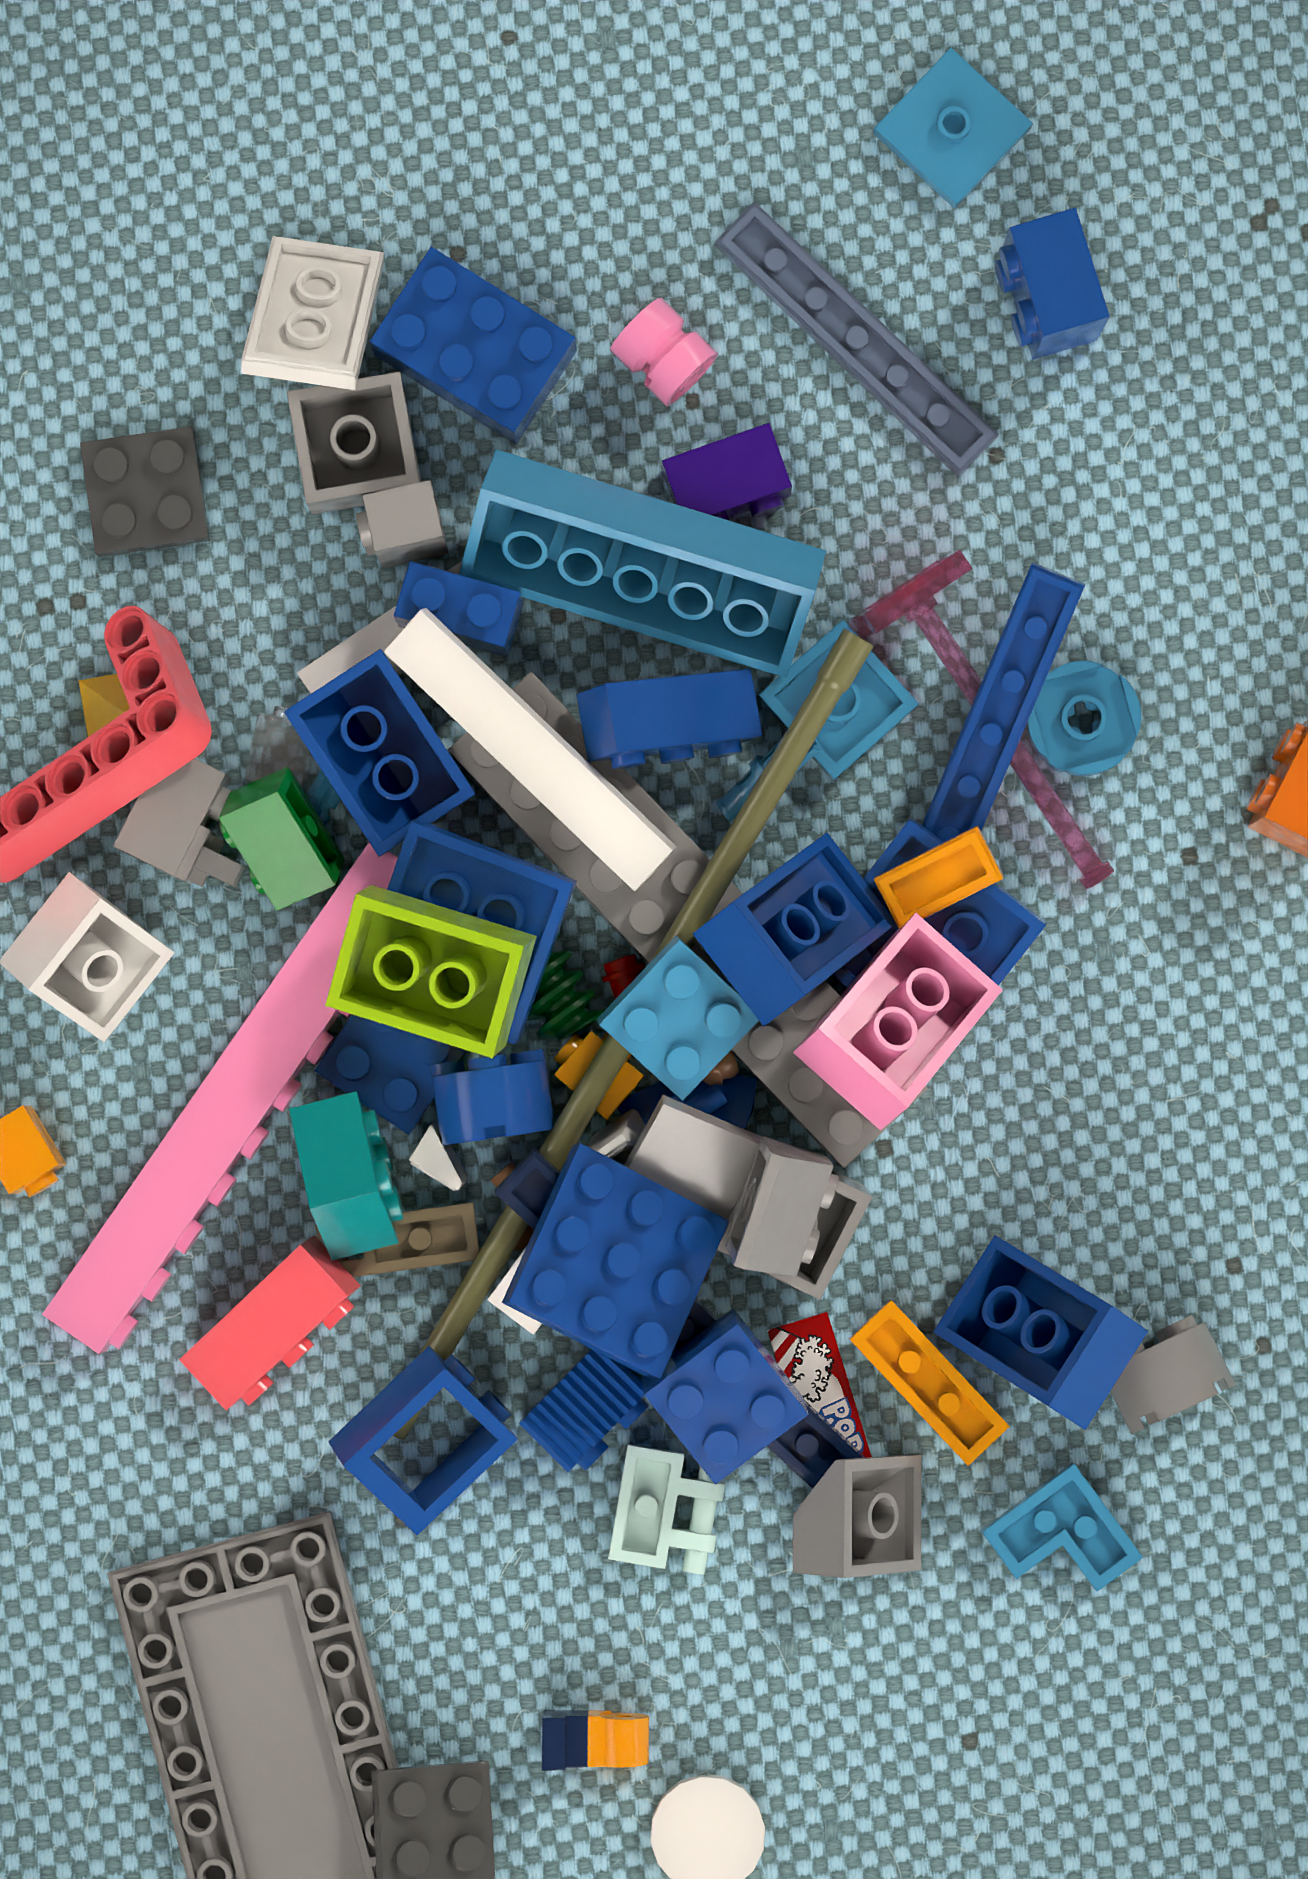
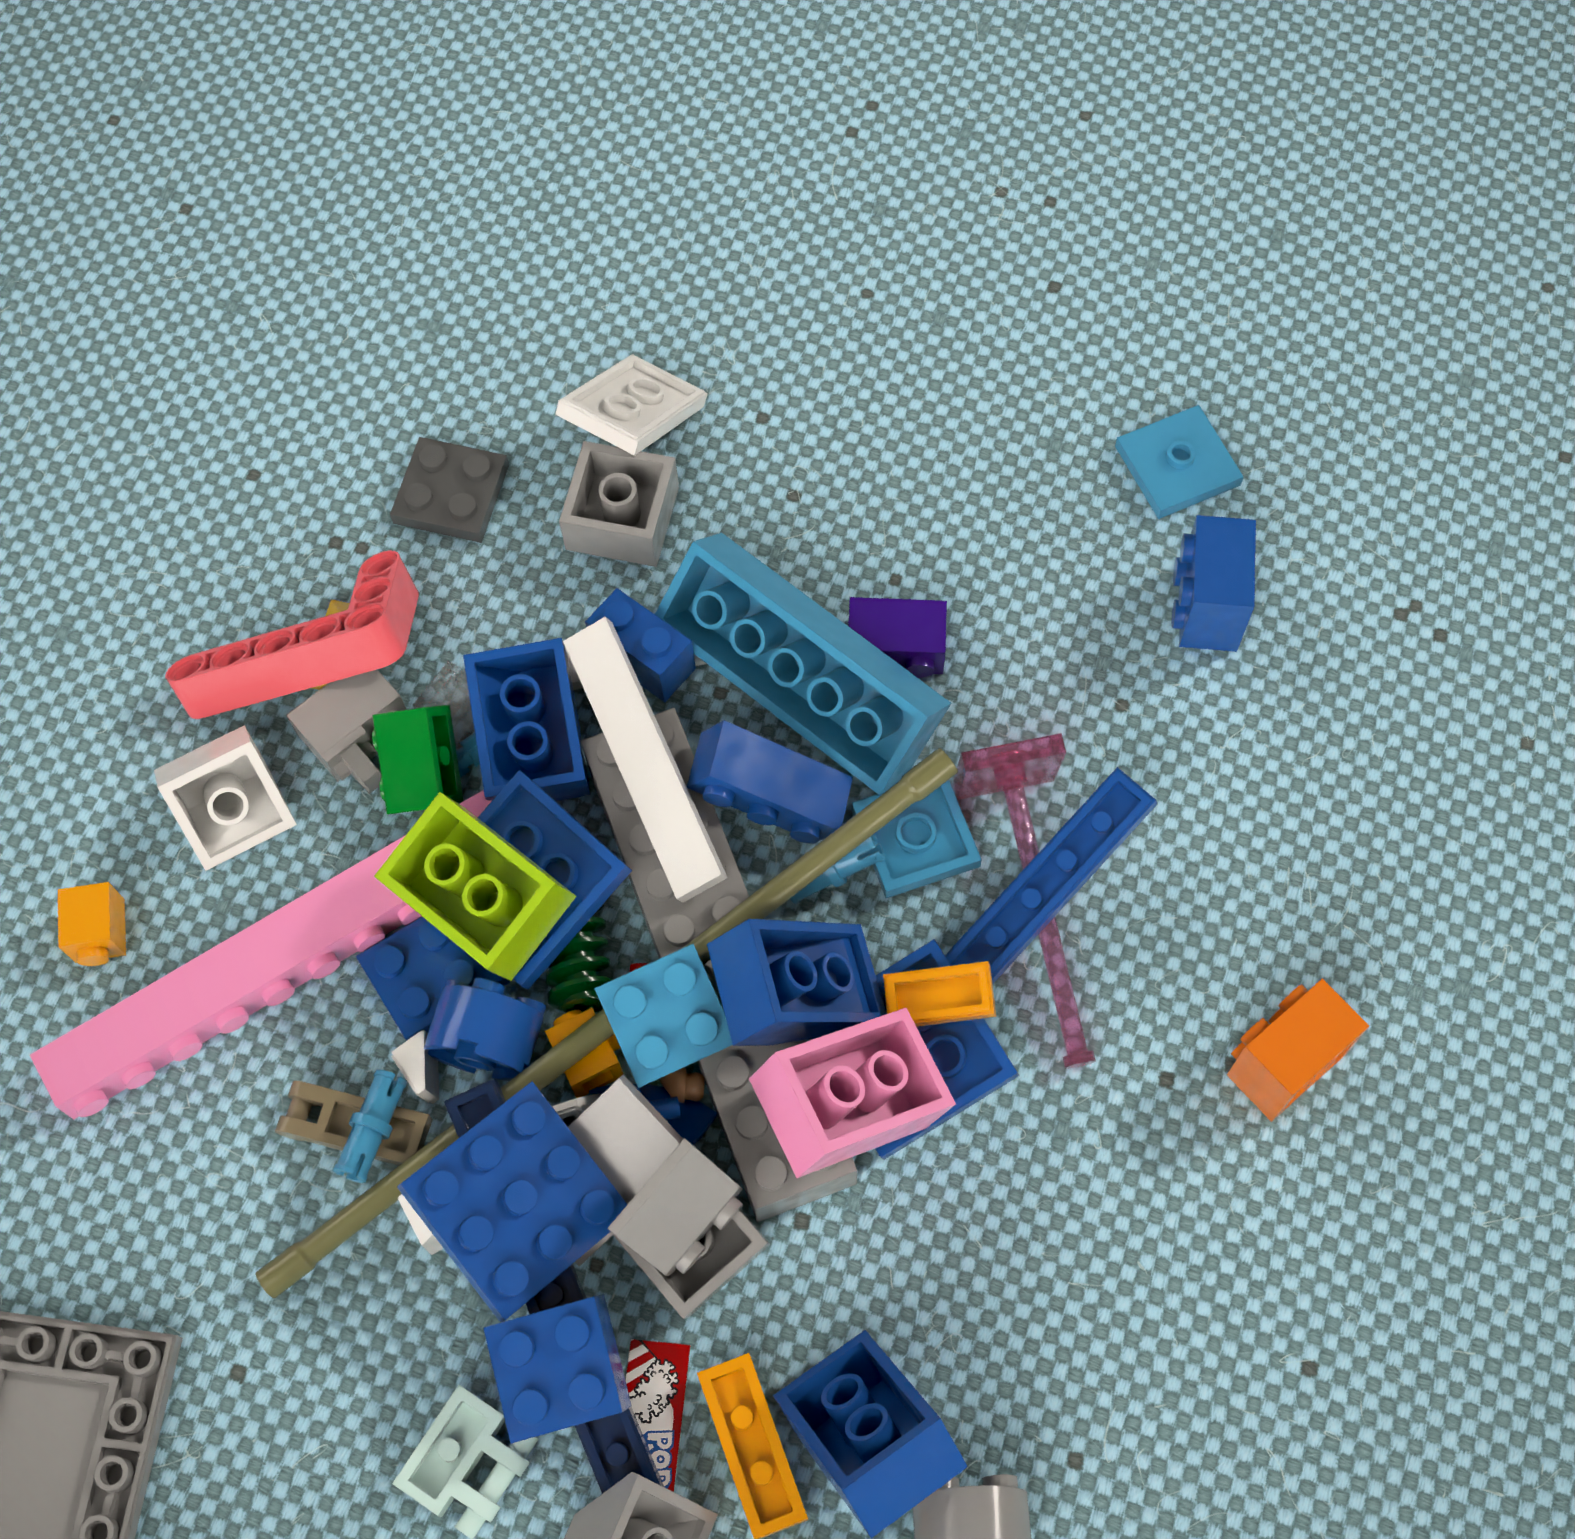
camera: 25 degrees right, 20 degrees down
(272, 1325) = (210, 1144): coral brick -> none
(347, 1175) = (329, 1039): teal brick -> none
(395, 1407) = (231, 1322): blue window -> none
(402, 525) = (627, 560): light grey brick -> none
(425, 1241) = (370, 1126): none -> dark azure pin
(473, 345) = (744, 472): blue brick -> none
(584, 1409) = (435, 1336): blue brick -> none
(663, 351) = (885, 522): bright pink wheel -> none
(856, 339) = (1044, 583): sand blue tile -> none
(1110, 737) = (1095, 948): dark azure plate -> none

